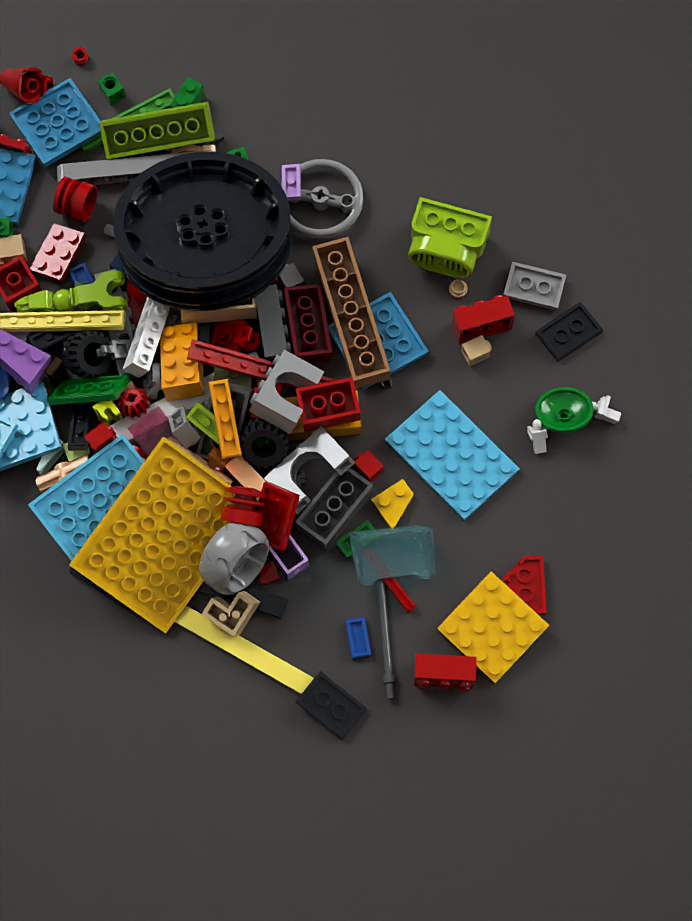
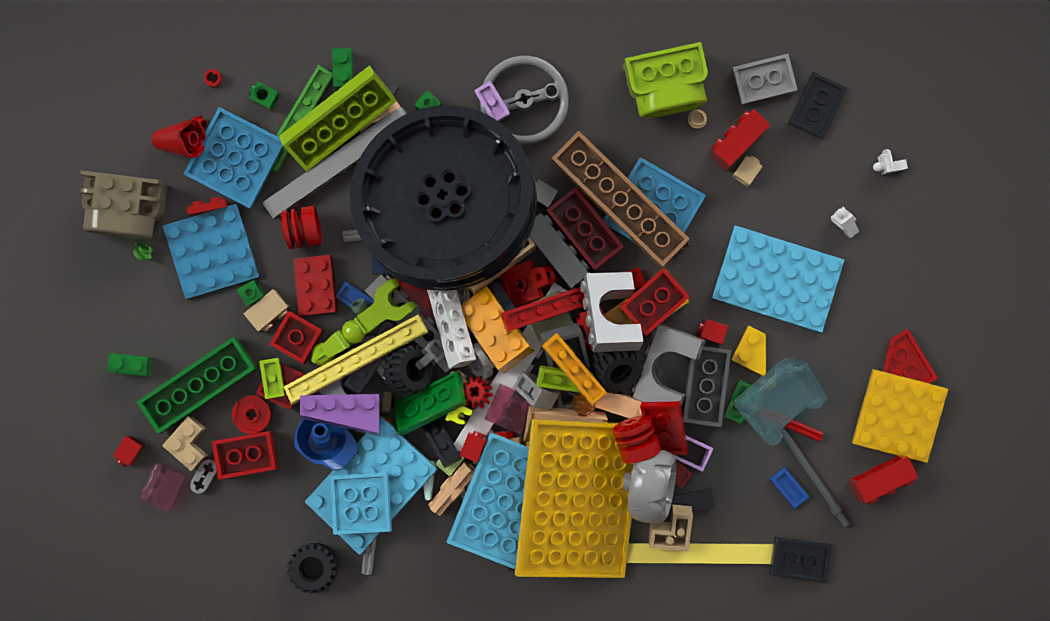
camera: 30 degrees left, 15 degrees up
(564, 409) = (857, 175): green dish -> none

